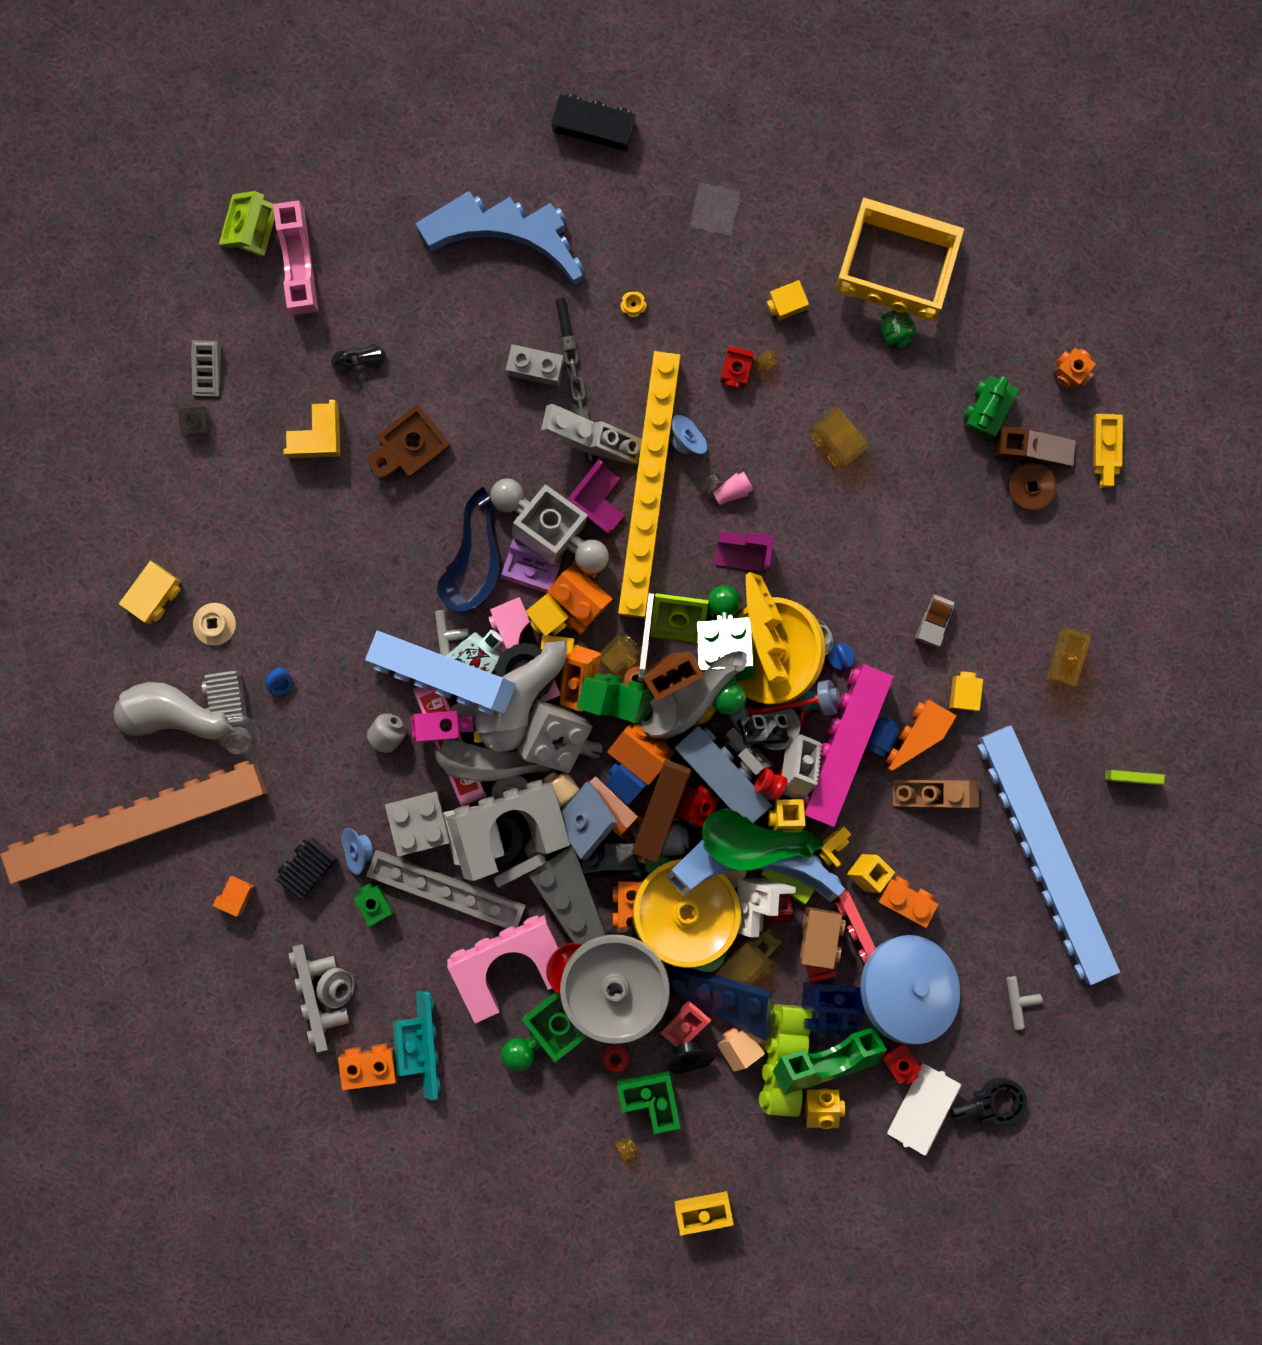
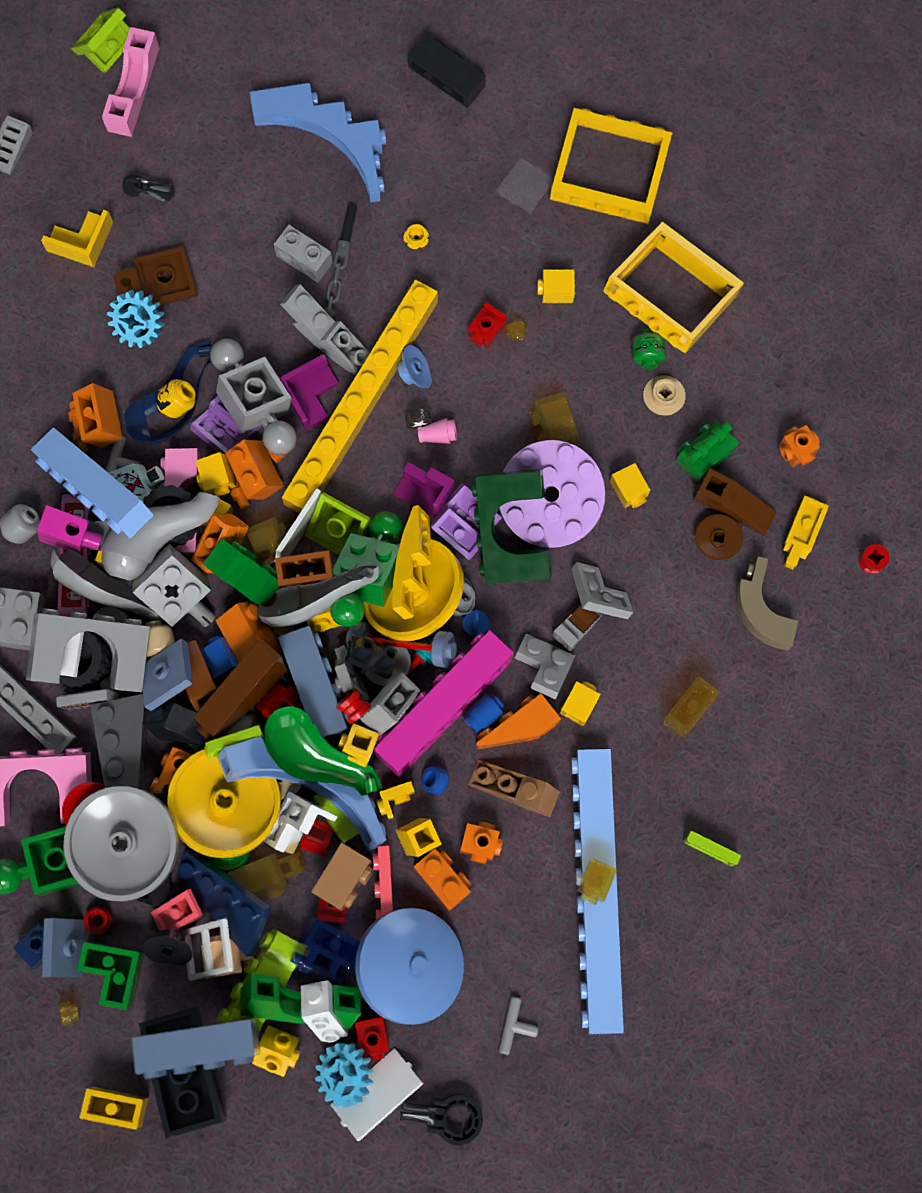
camera: 15 degrees right, 10 degrees down
(409, 605) = (94, 417): none -> orange brick
(410, 484) = (144, 312): none -> medium azure gear
(478, 557) = (175, 398): none -> yellow head
(574, 1102) = (31, 947): none -> dark blue brick
(599, 1097) = (62, 947): none -> sand blue plate
(663, 869) = (215, 746): none -> lime tile
(718, 1031) = (204, 929): none -> white window
(749, 1159) = (190, 1098): none -> black brick
(760, 1139) = (196, 1046): none -> sand blue brick
(794, 565) = (457, 521): none -> medium lavender slope
(796, 198) = (602, 201): none -> yellow window
(843, 591) = (500, 562): none -> dark green arch
(849, 1061) = (318, 1012): none -> white bracket
(862, 814) = (435, 780): none -> blue tile
(873, 534) = (579, 500): none -> lavender piece
(891, 1105) = (342, 1076): none -> medium azure gear
(918, 855) = (482, 831): none -> orange brick
(924, 377) = (657, 402): none -> tan piece
(926, 665) = (551, 662): none -> light grey plate
(932, 470) = (630, 486): none -> yellow brick
(944, 589) = (596, 596): none -> light grey plate
(1047, 852) = (596, 881): none -> clear yellow brick
(1093, 545) = (755, 614): none -> dark tan arch
(1177, 453) = (870, 563): none -> red wheel

